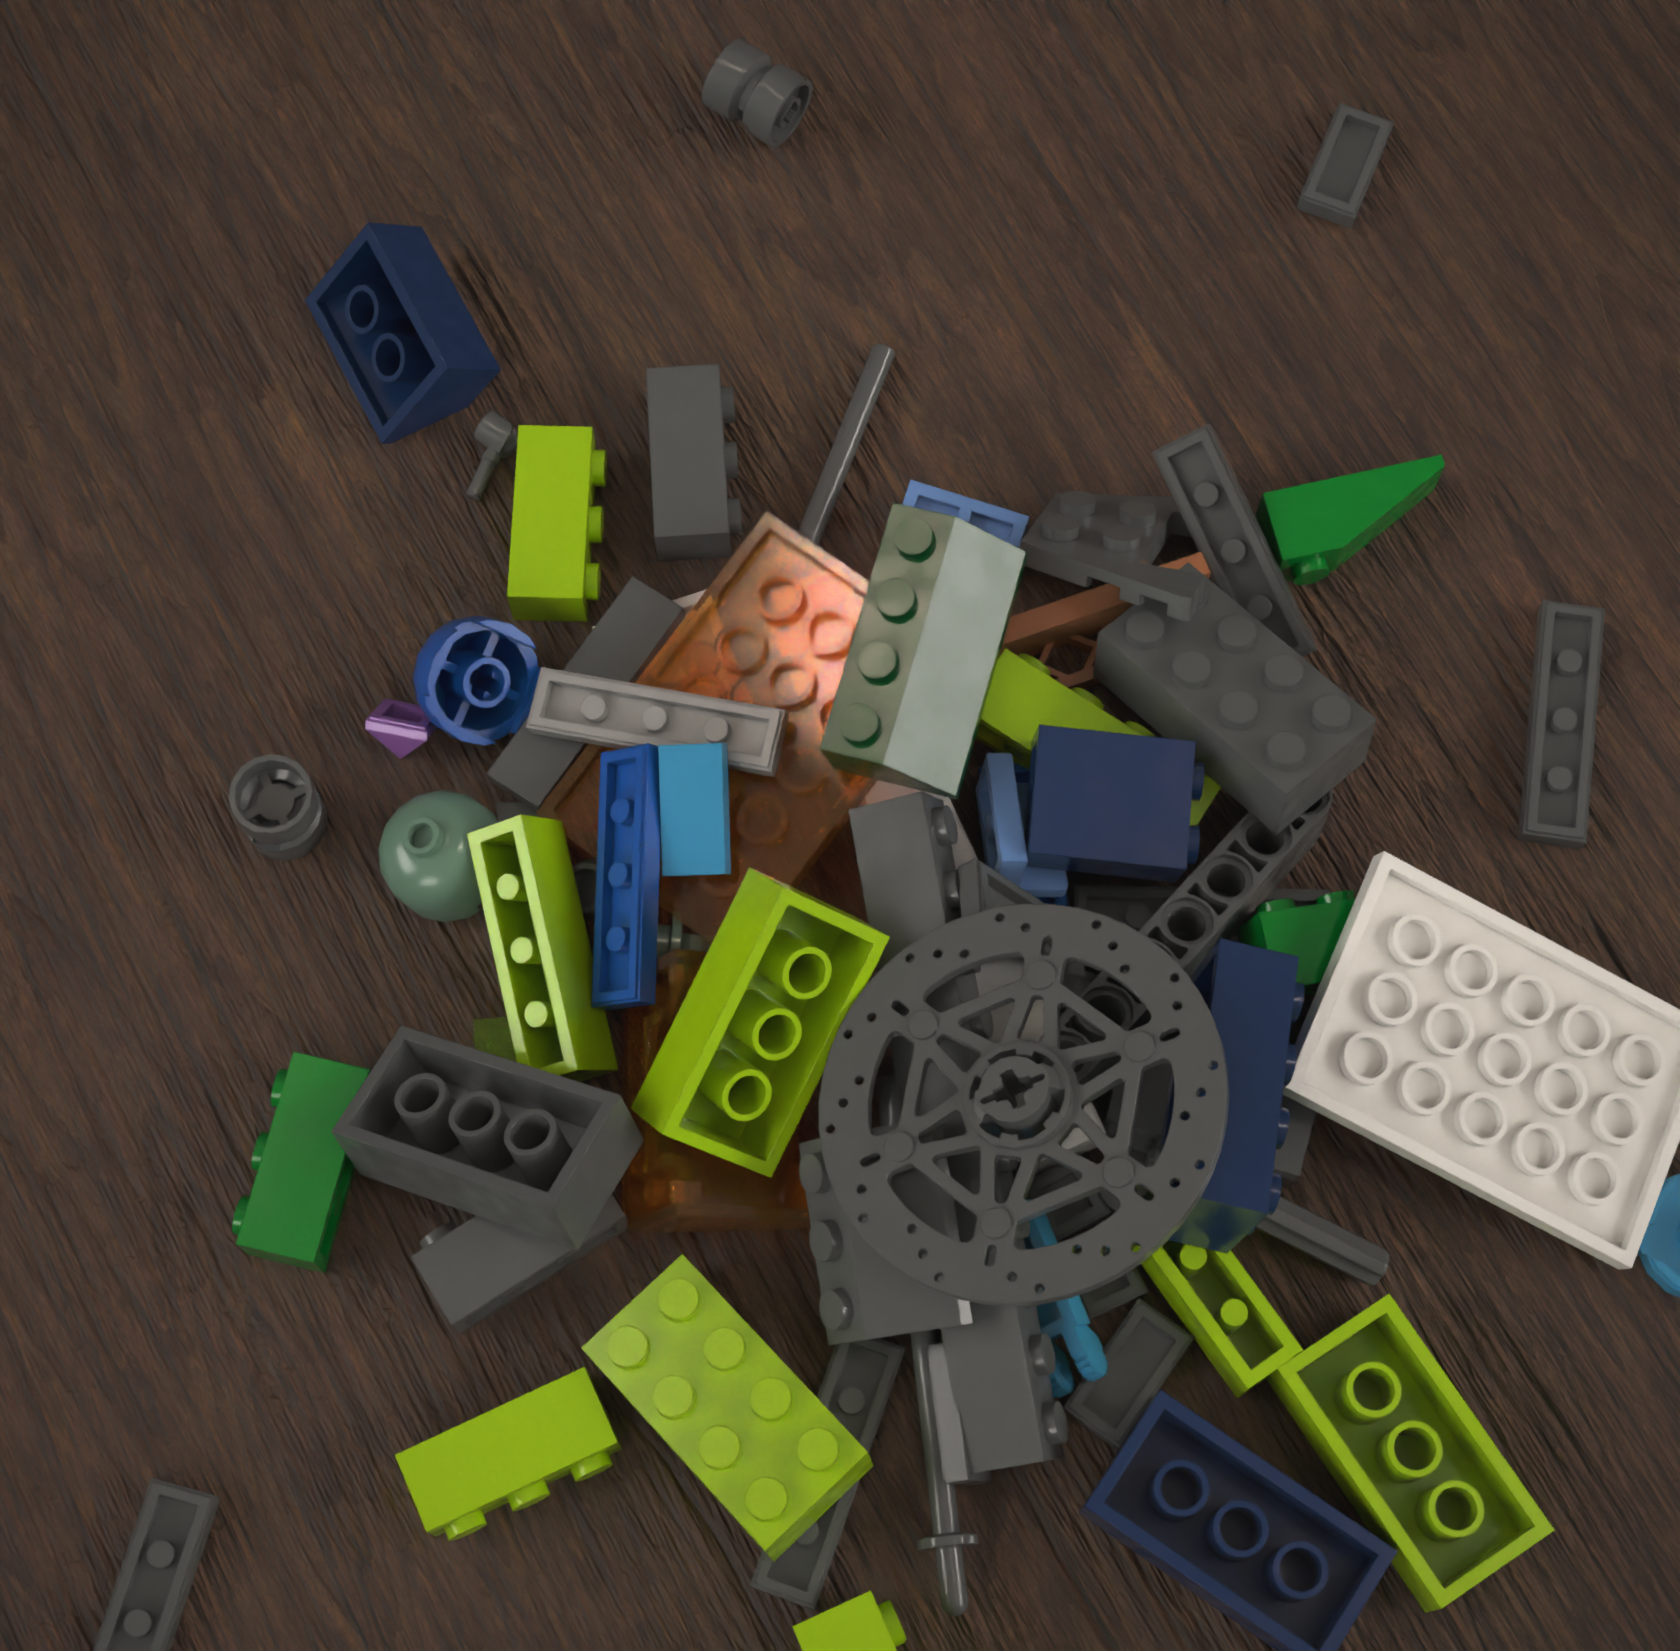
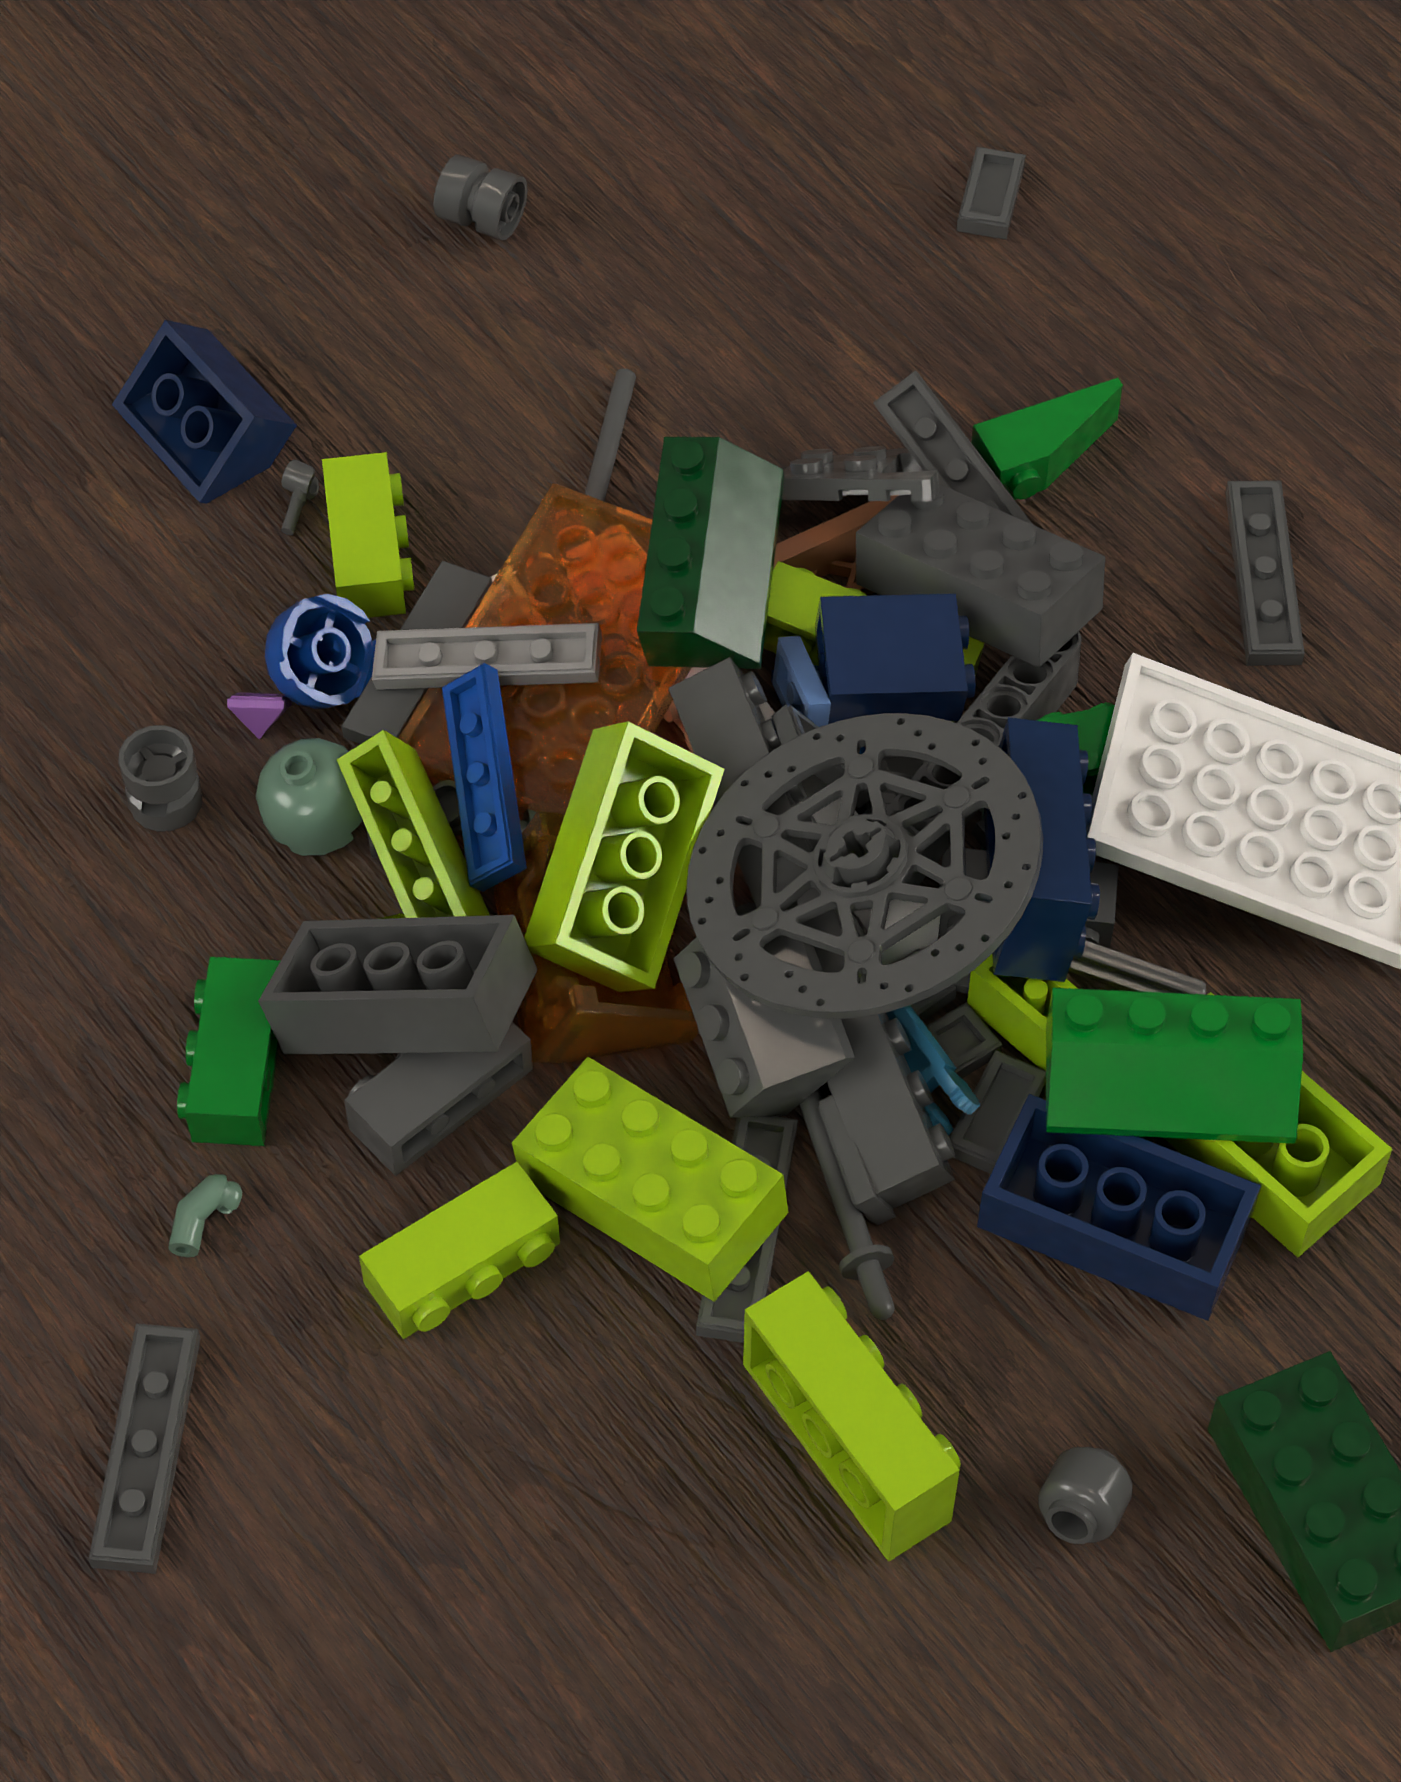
camera: 10 degrees left, 15 degrees down
(239, 1343) = (194, 1209): none -> sand green arm
(691, 462) = (476, 475): dark grey brick -> none
(694, 809) = (533, 712): dark azure tile -> none
(1327, 1398) = (1173, 1065): none -> green slope

